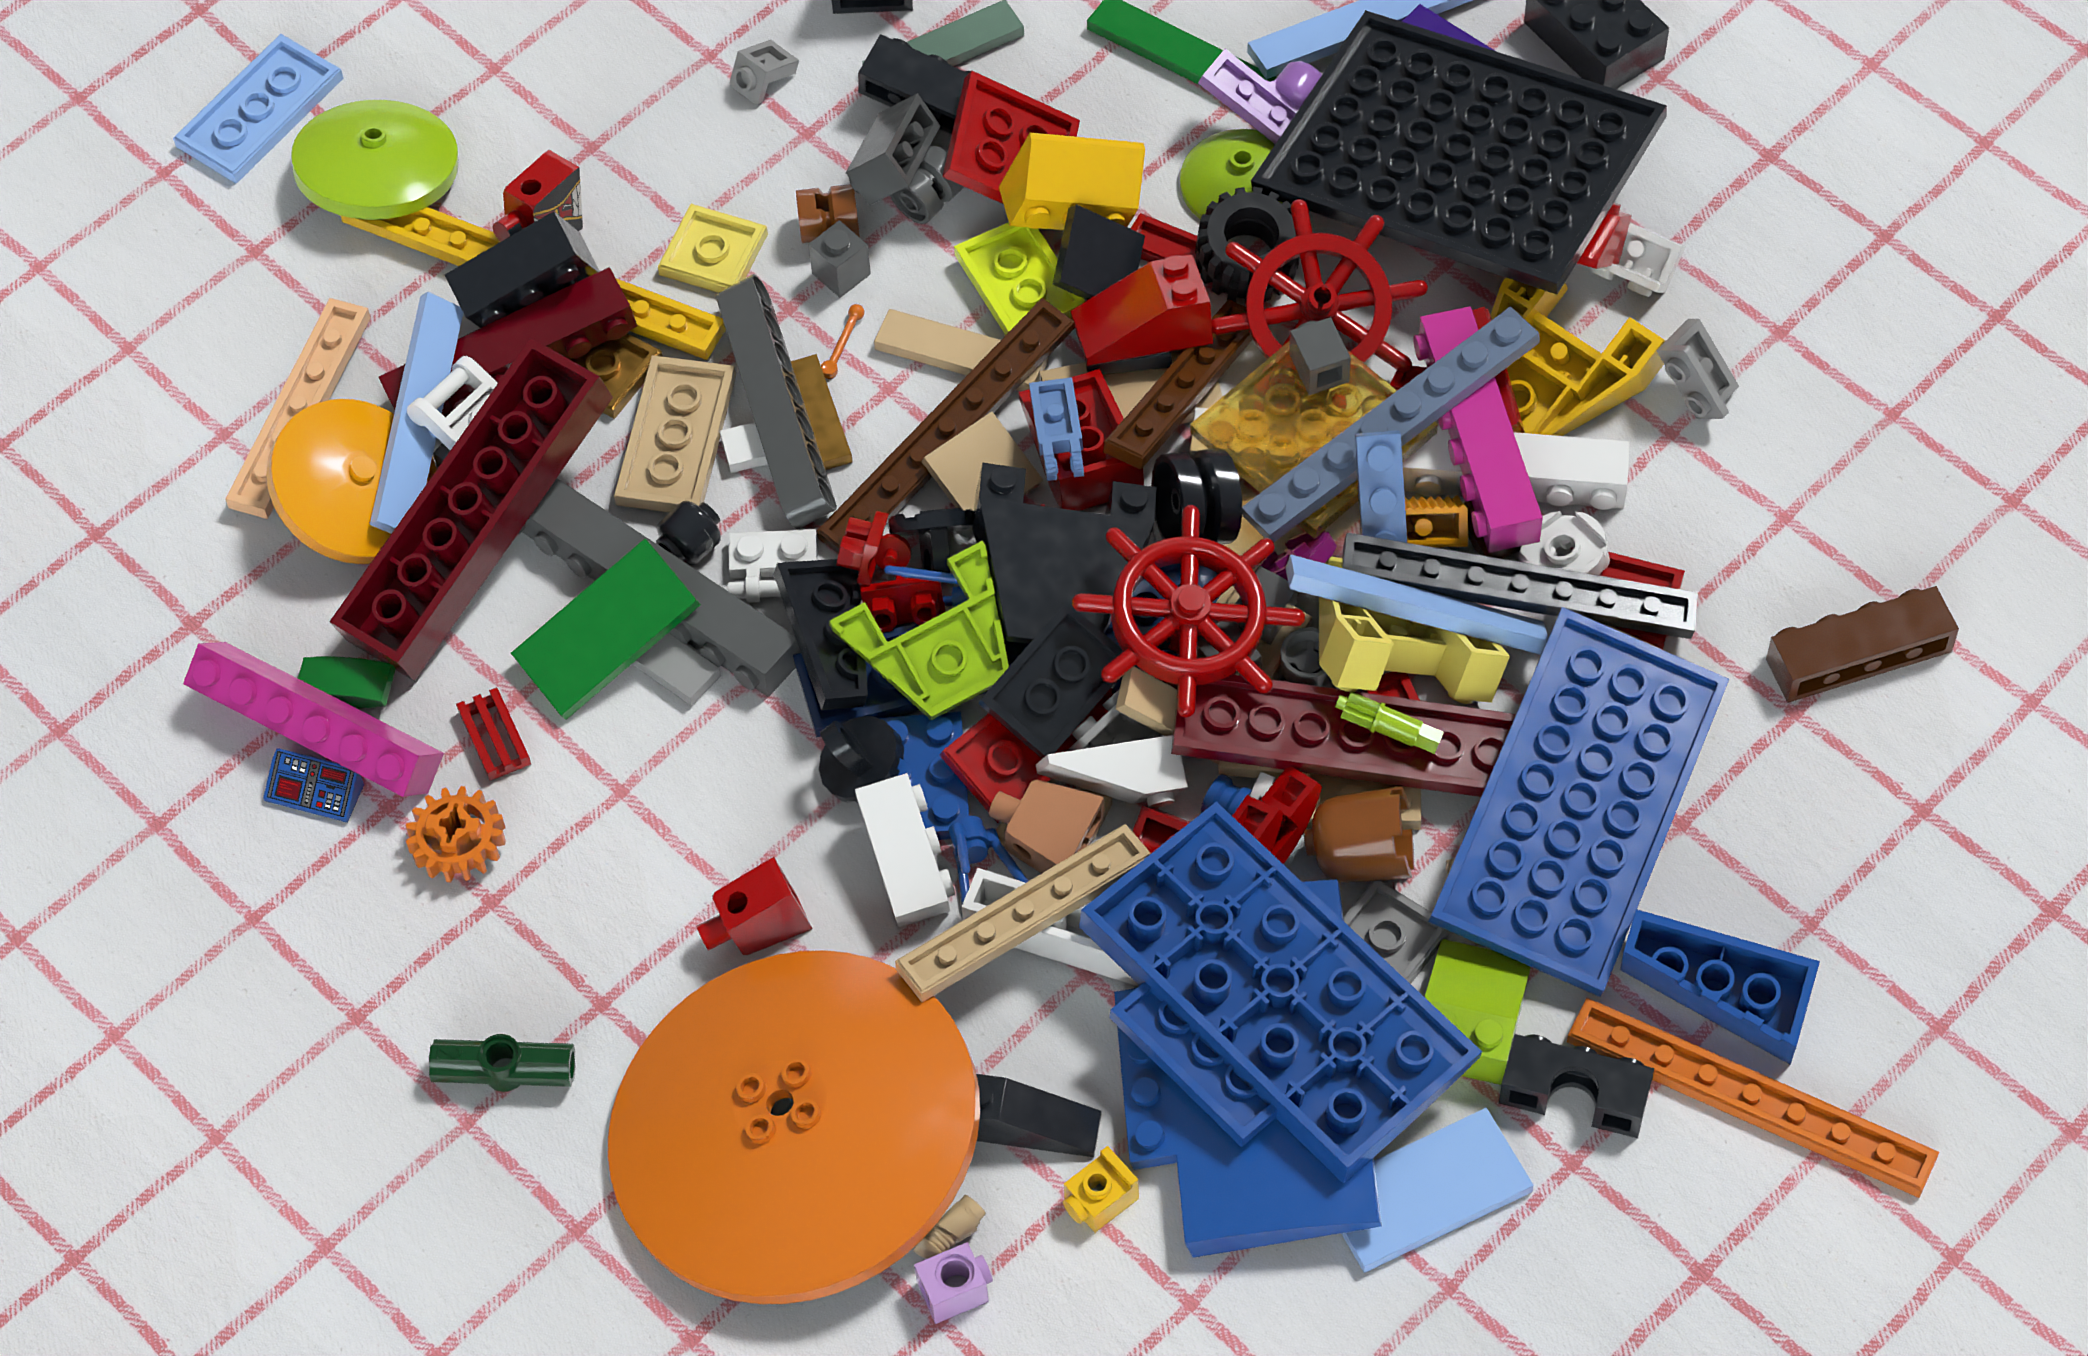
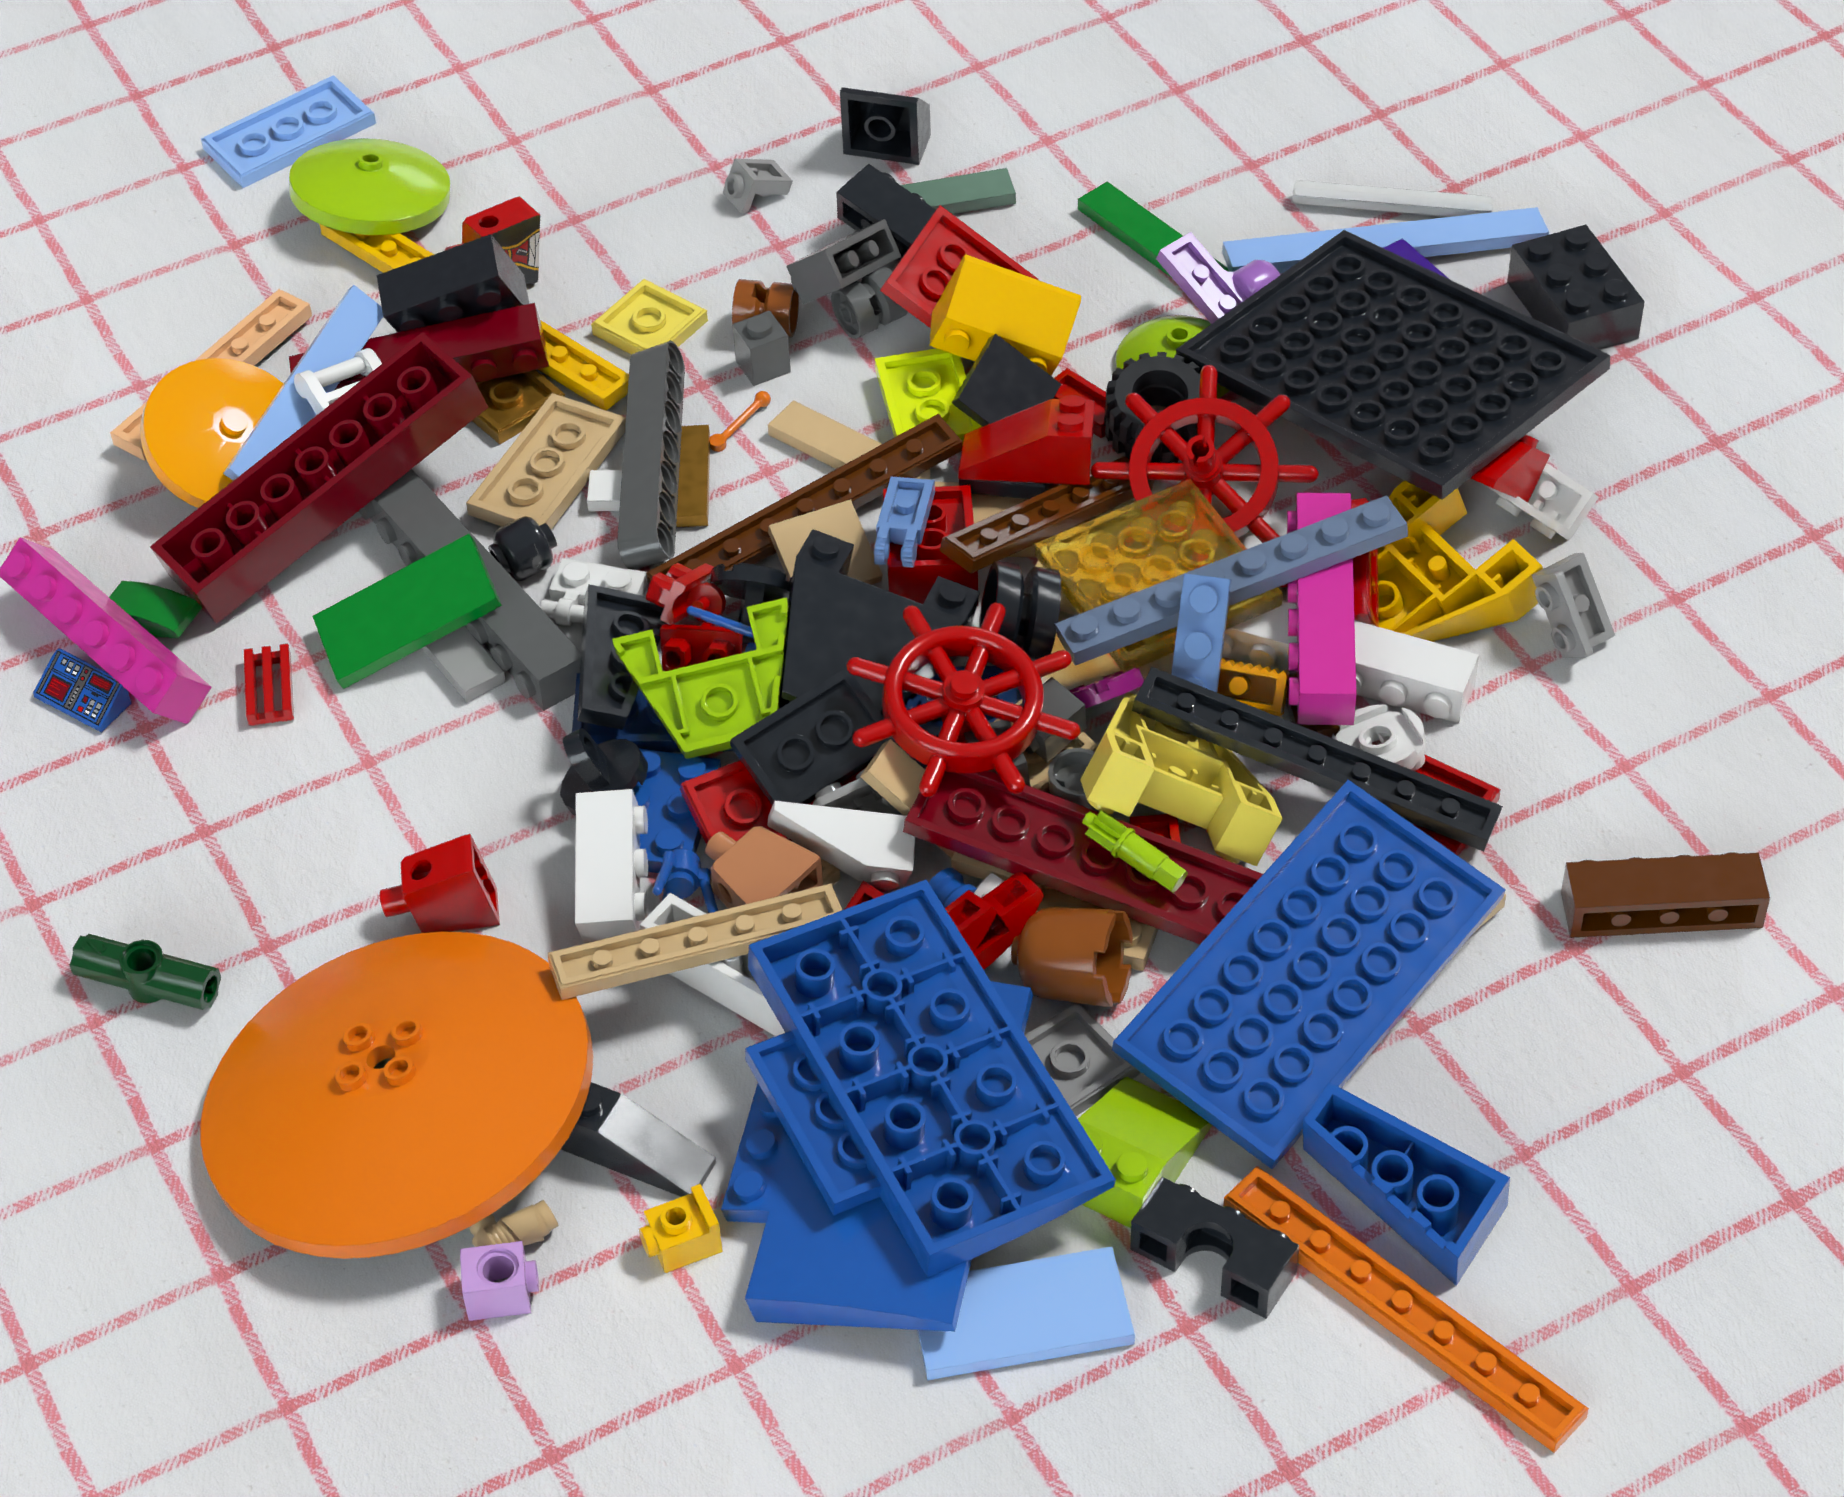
camera: 15 degrees right, 10 degrees down
(443, 823) = (192, 760): orange gear -> none
(1319, 355) = (1182, 505): dark grey brick -> none
(1416, 604) = (1197, 747): light blue tile -> none

